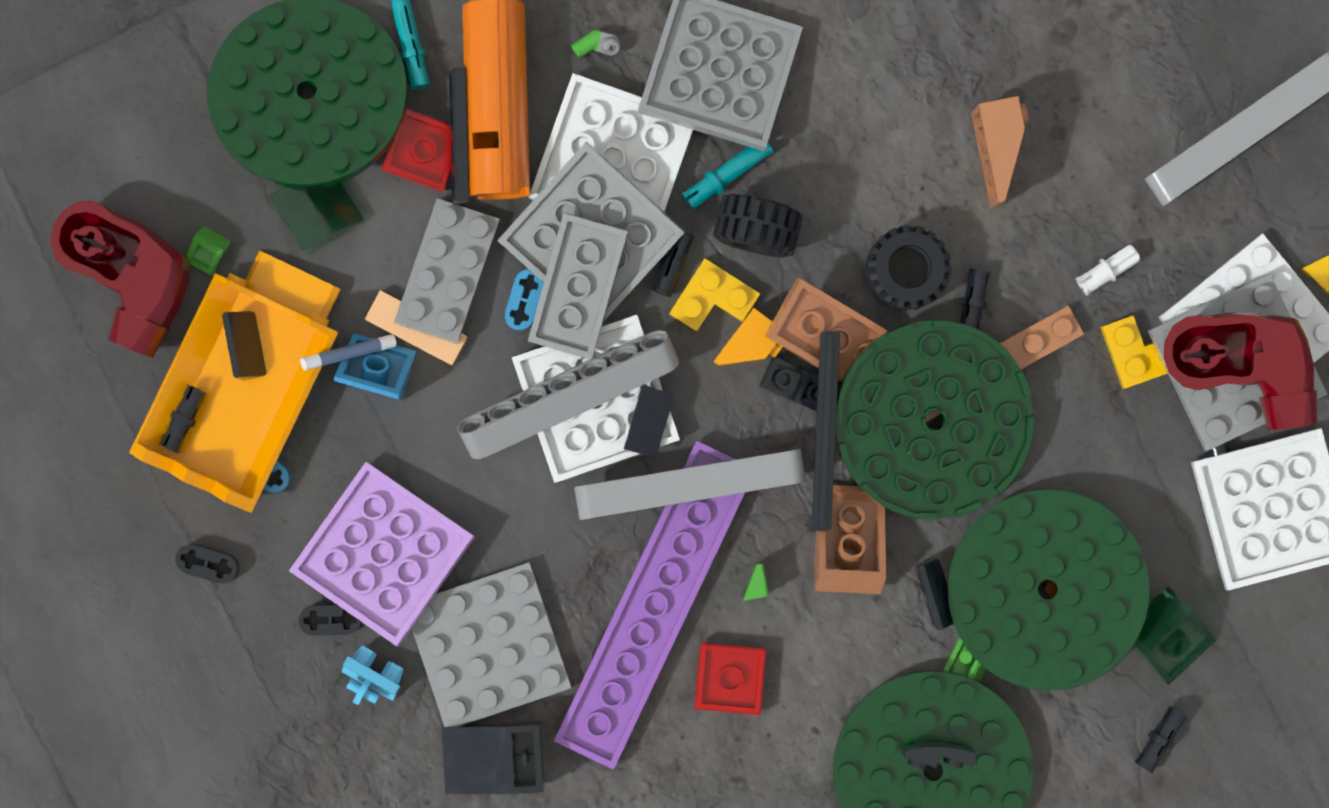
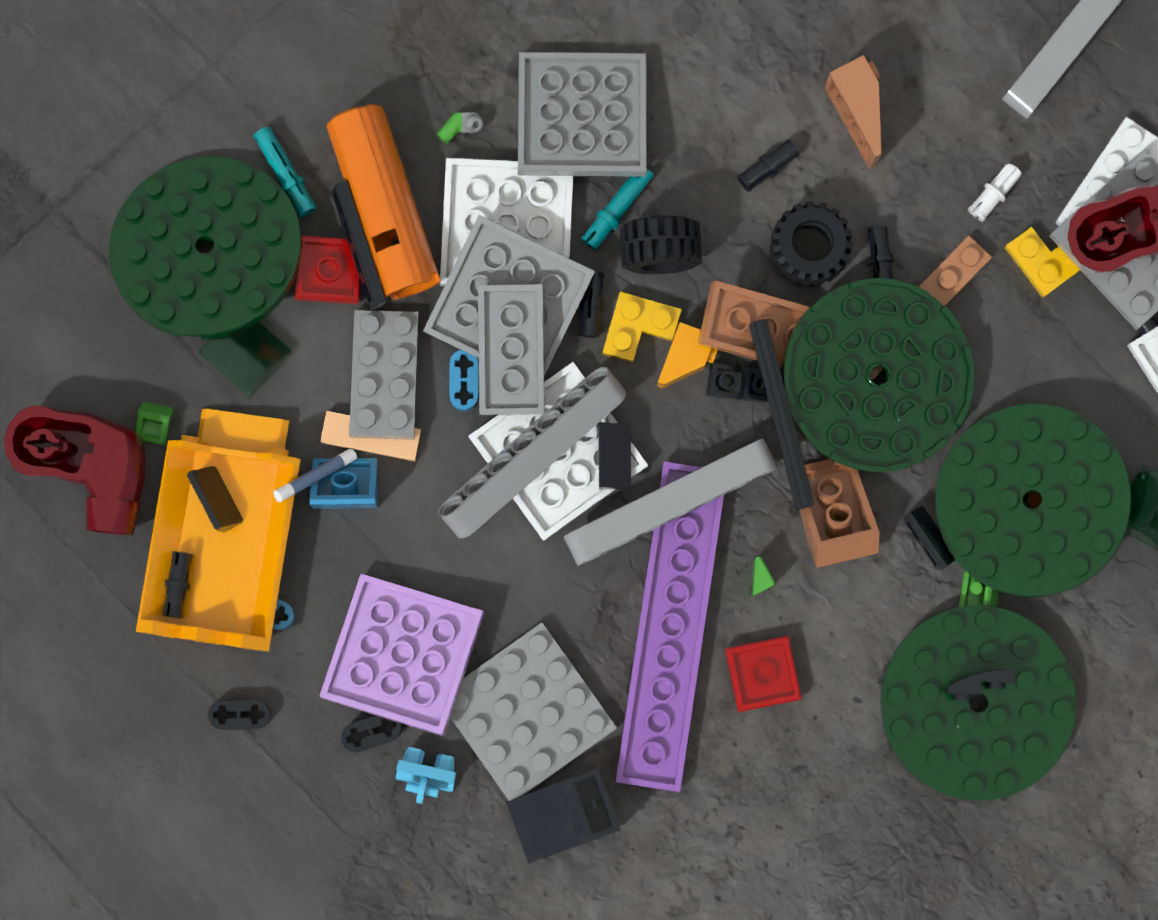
camera: 25 degrees left, 5 degrees down
(890, 176) = (768, 165): none -> black pin

